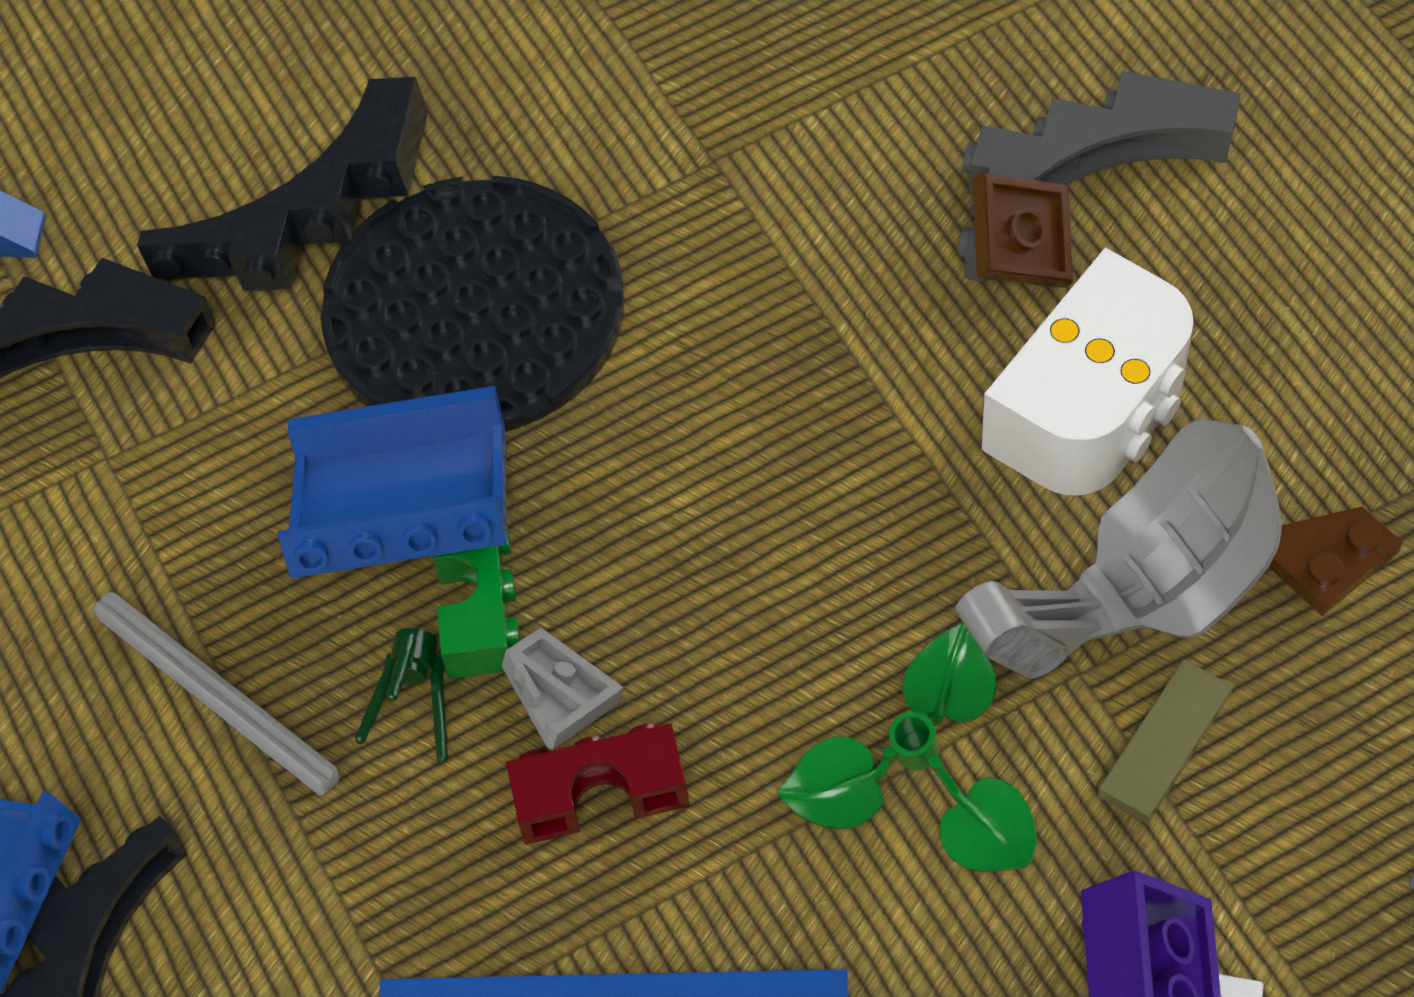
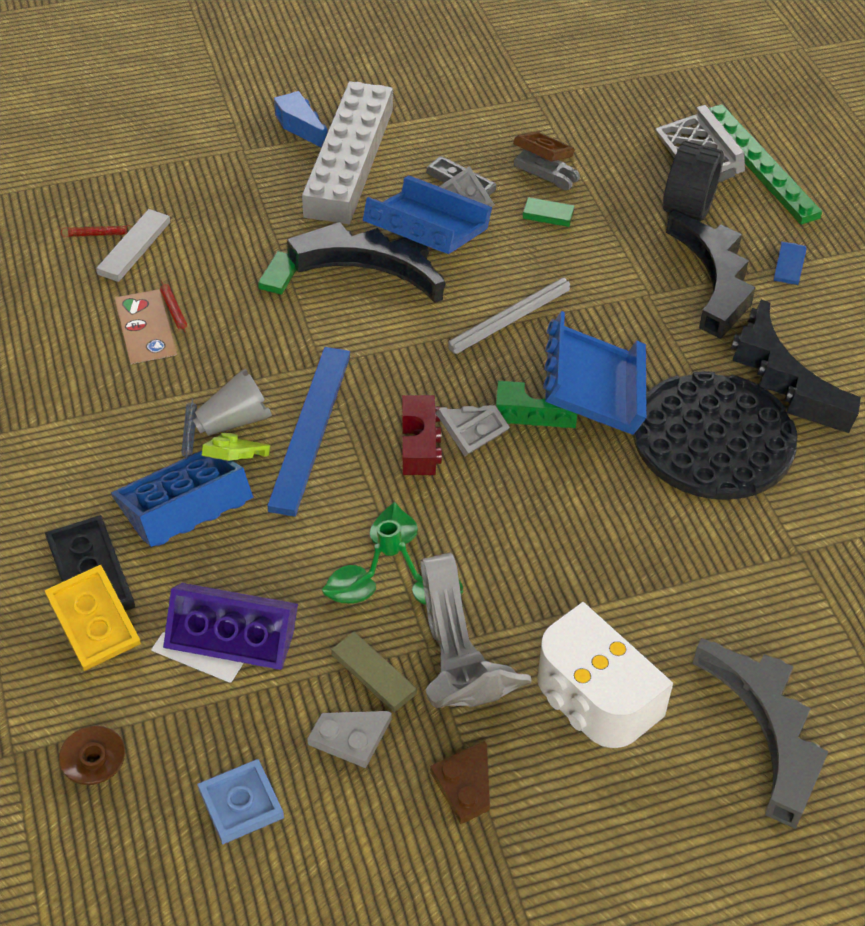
camera: 95 degrees right, 10 degrees down
(409, 664) = (502, 374): dark green plant -> none
(1022, 230) = (711, 670): reddish brown tile -> none
(1305, 747) = (350, 734): none -> light grey wing

